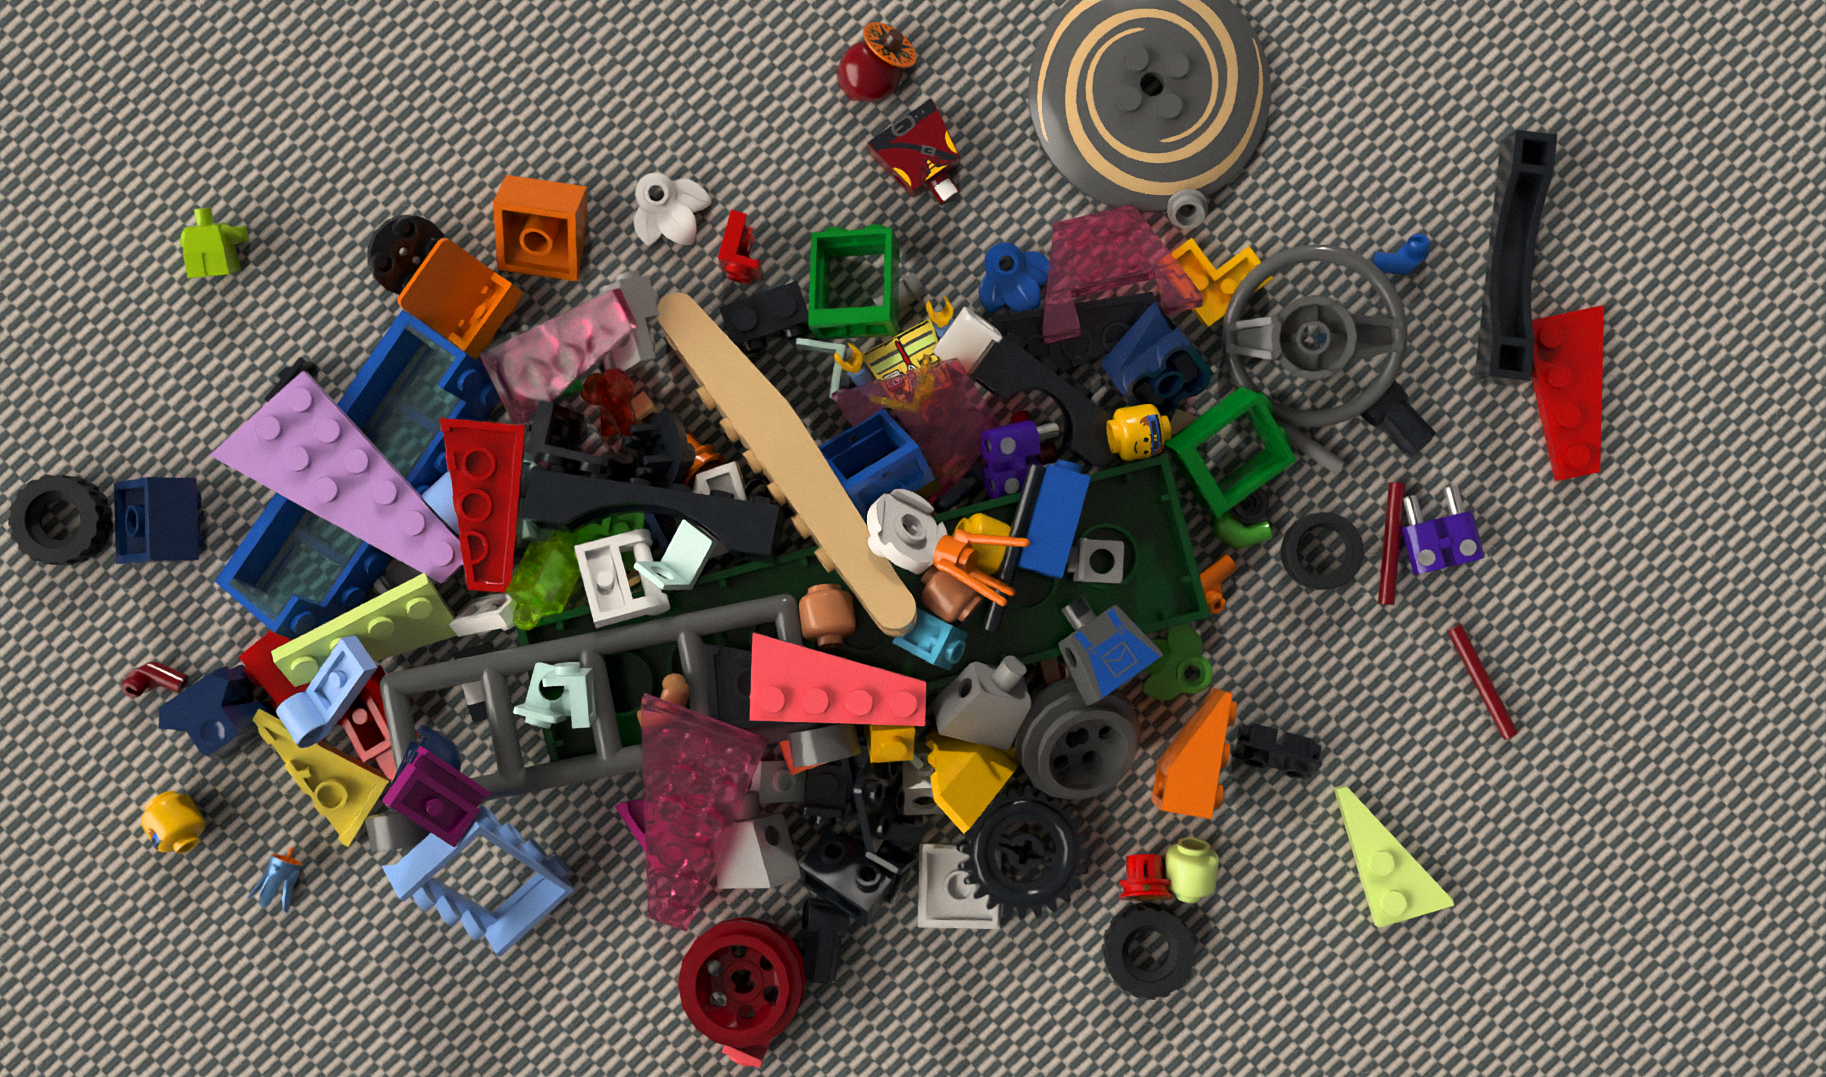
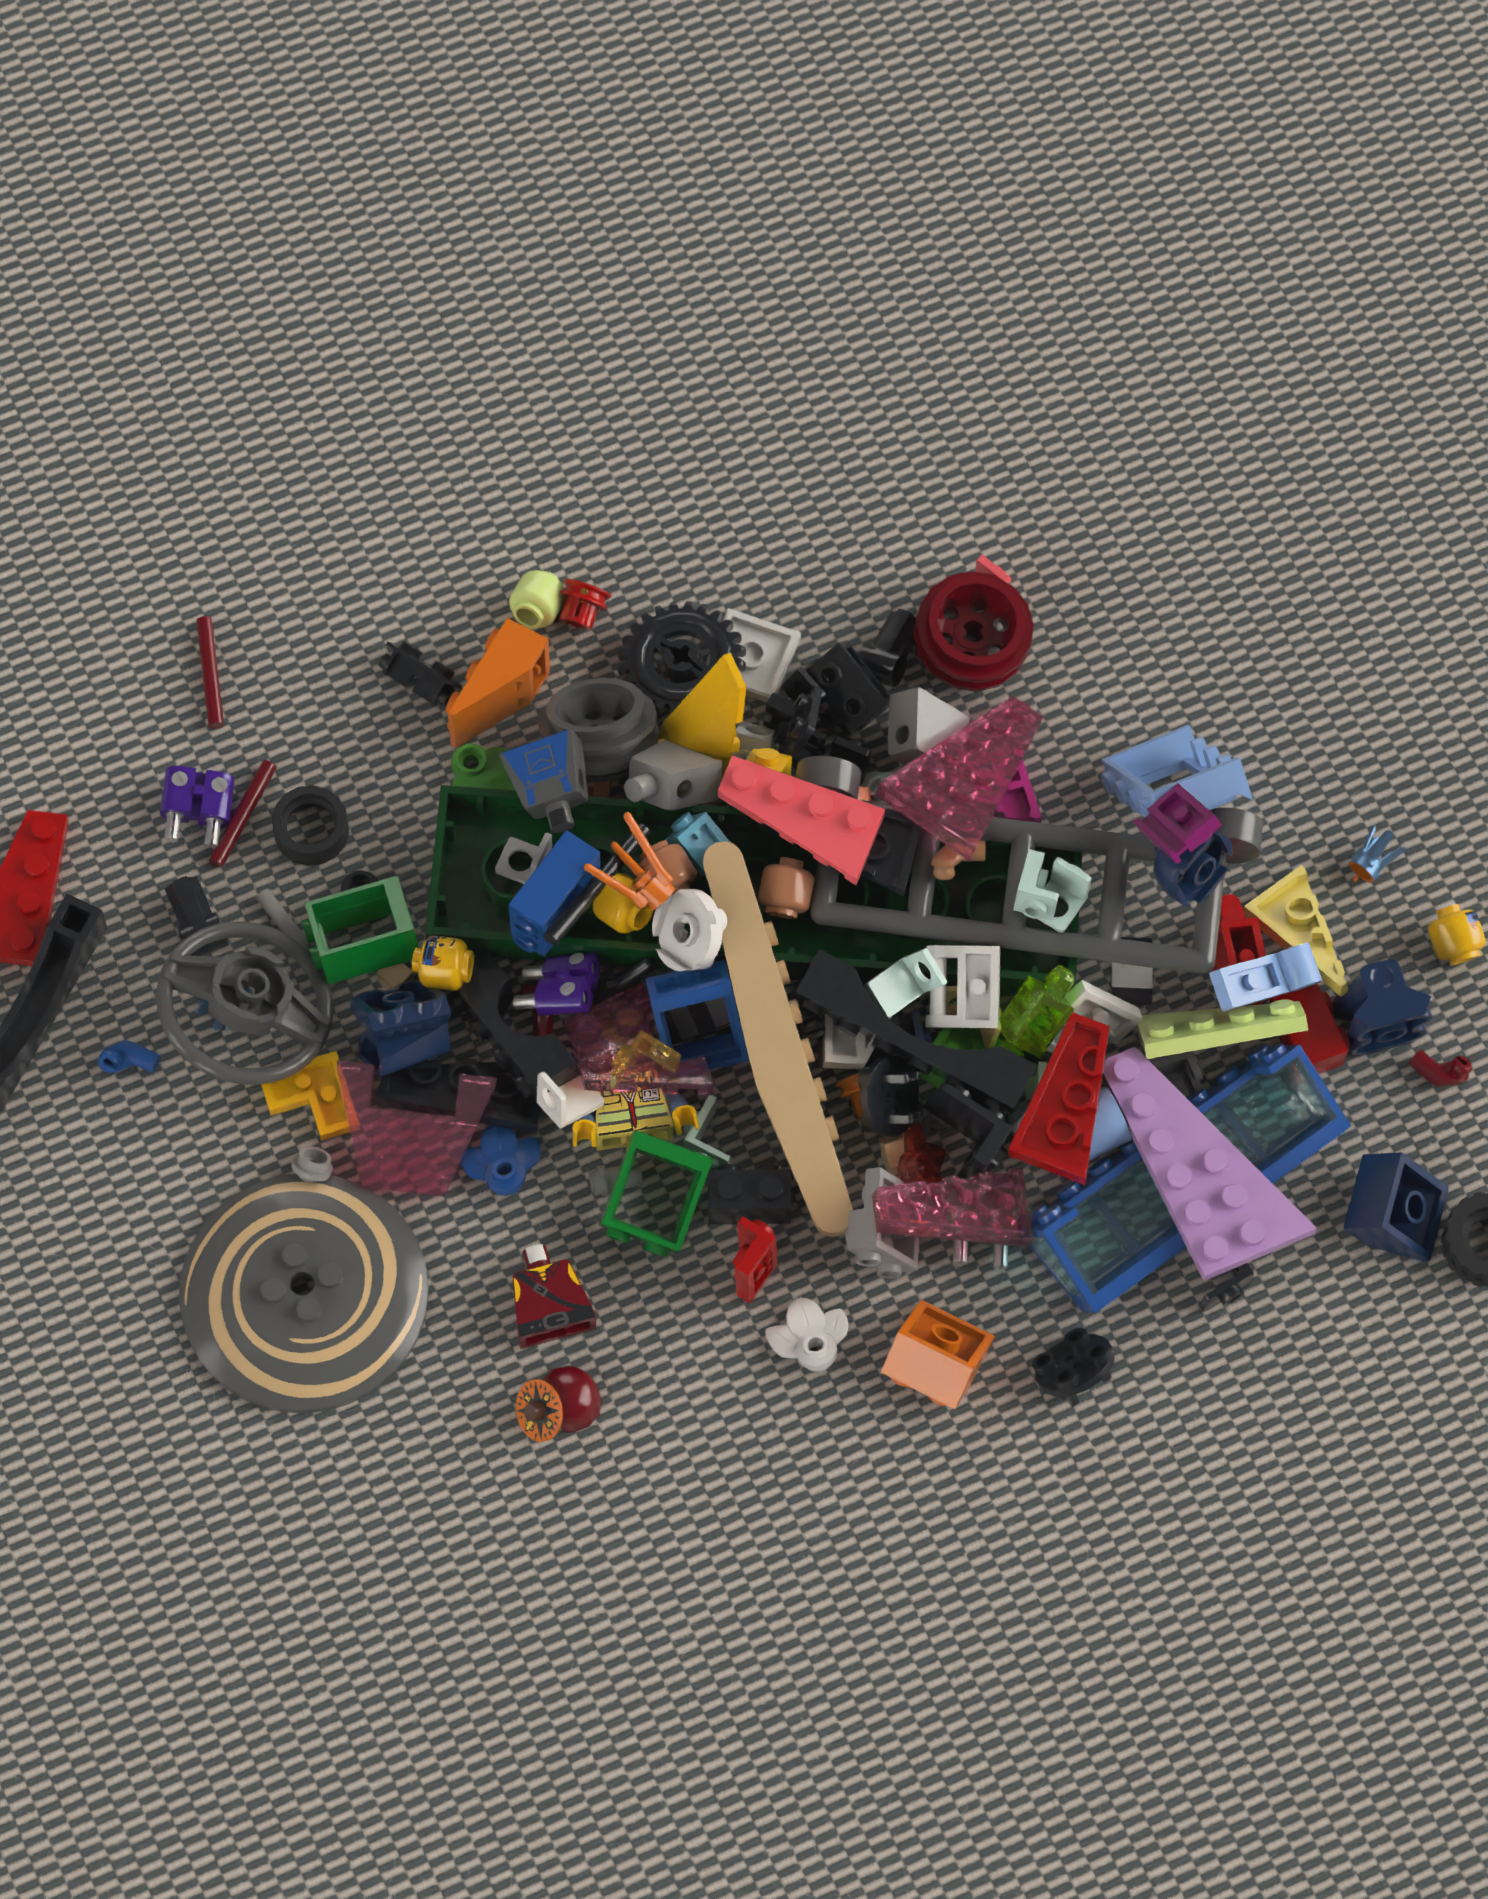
camera: 165 degrees left, 20 degrees down
(211, 246) = (1266, 1440): lime piece -> none
(459, 297) = (1032, 1303): orange bracket -> none
(1171, 973) = (608, 519): black tyre -> none
(1212, 582) = (422, 833): orange arm -> none
(1237, 534) = (375, 863): bright green arm -> none
(1390, 876) = (360, 539): yellowish green wing -> none

